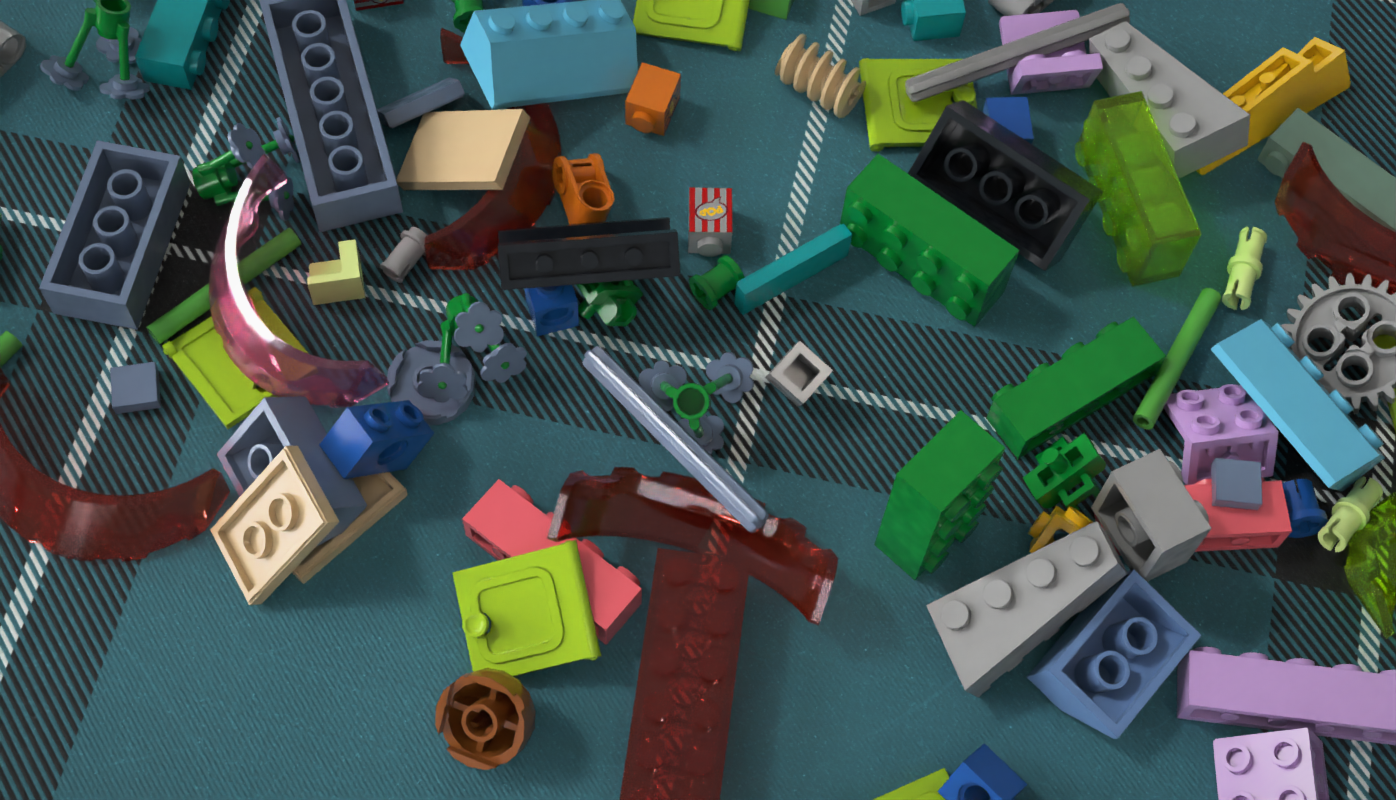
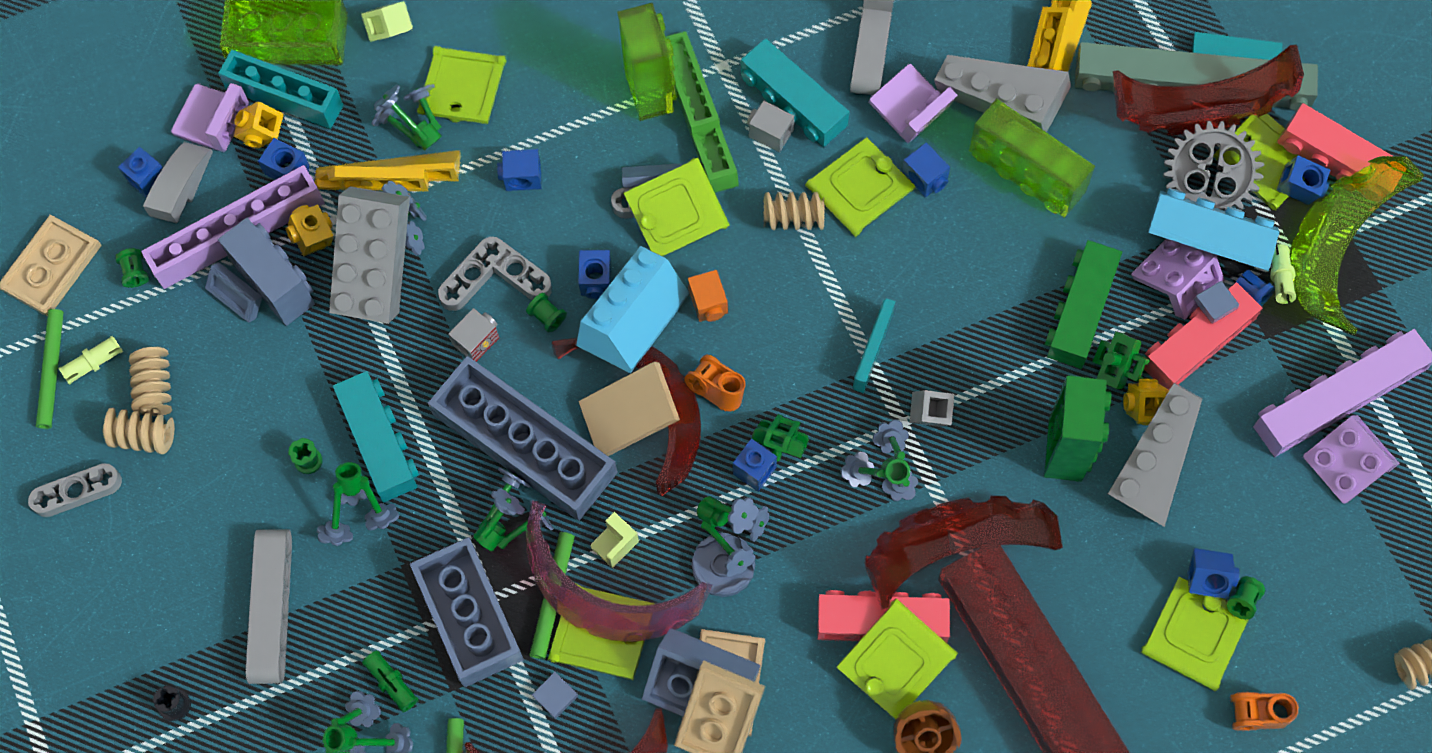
camera: 30 degrees left, 5 degrees up
(376, 438) = (732, 622): blue brick -> none
(405, 254) = (644, 497): light grey pin -> none
(420, 102) = (572, 394): sand blue tile -> none
(588, 253) = (759, 423): black fence -> none
(676, 440) = (893, 497): sand blue axle -> none
(710, 221) = (804, 350): light grey brick -> none
(716, 282) = (838, 384): green bush -> none
(927, 240) = (941, 275): green brick -> none
(1005, 183) = (957, 209): black brick -> none
(1009, 54) = (897, 116): light grey axle -> none
(1114, 656) = (1224, 449): medium blue slope -> none
(1151, 515) = (1193, 357): light grey brick -> none
(1177, 358) = (1124, 244): bright green piece -> none
(1244, 268) = (1120, 163): yellowish green pin -> none

